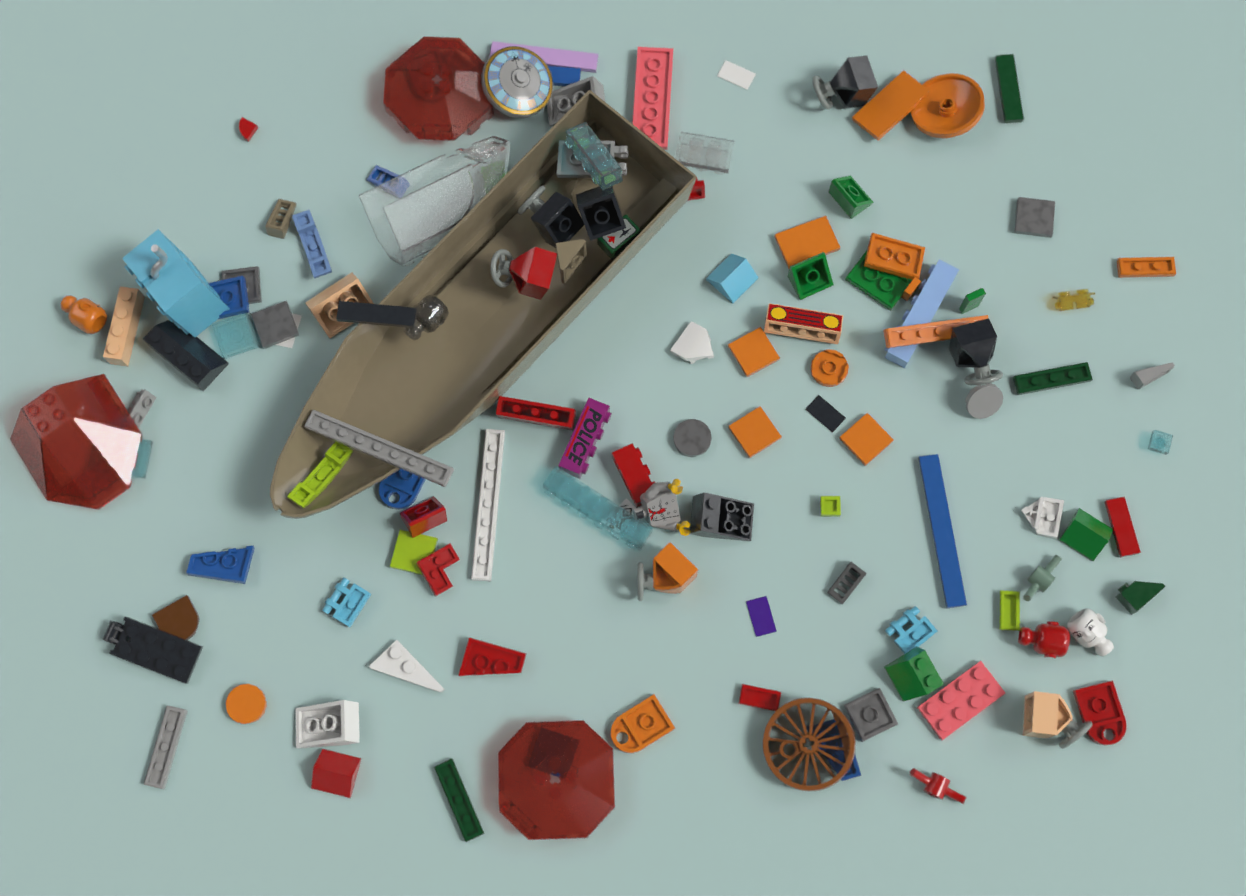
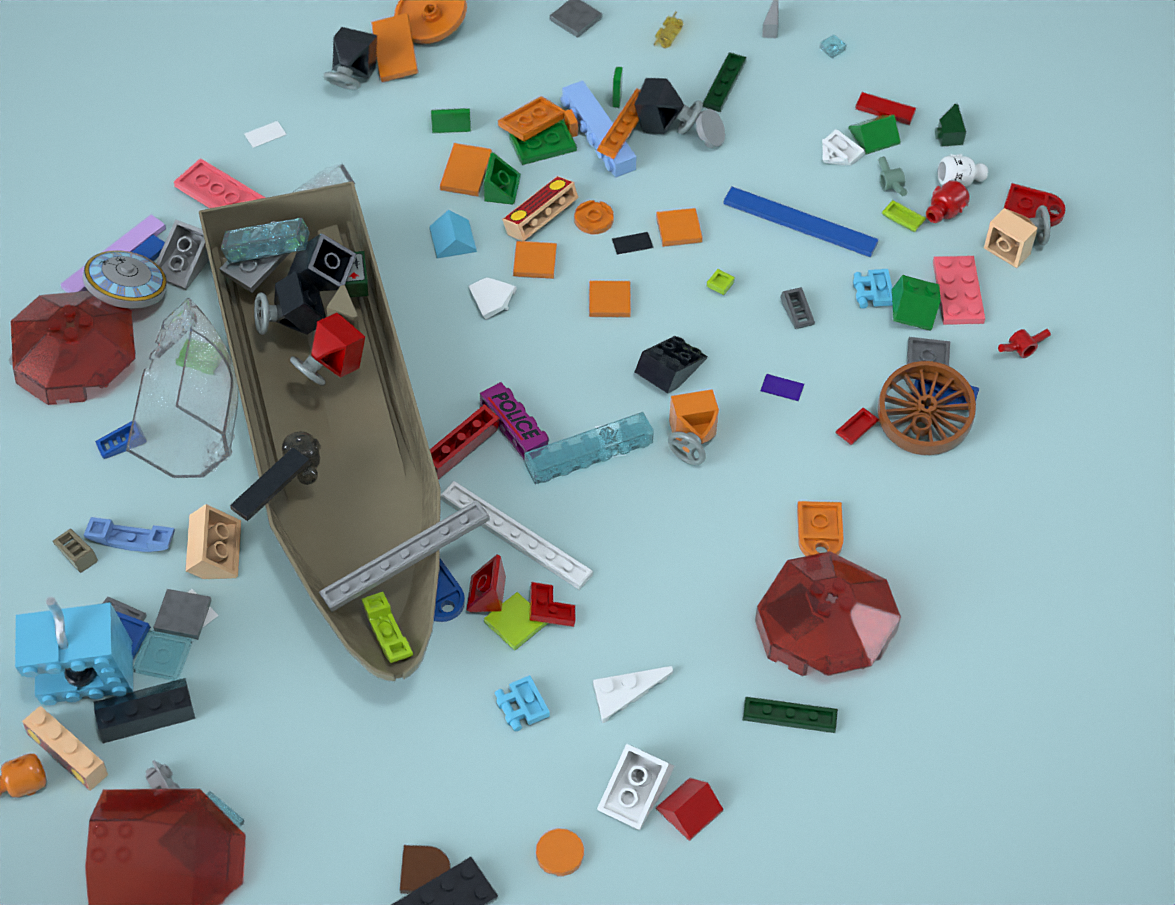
camera: 60 degrees left, 20 degrees down
(223, 566) = (398, 795): blue wing -> none
(488, 658) = (670, 612): red wing -> none
(632, 471) = (580, 403): red brick -> none
(661, 507) = (627, 392): light grey torso -> none
(692, 438) = (578, 345): flat silver tile -> none

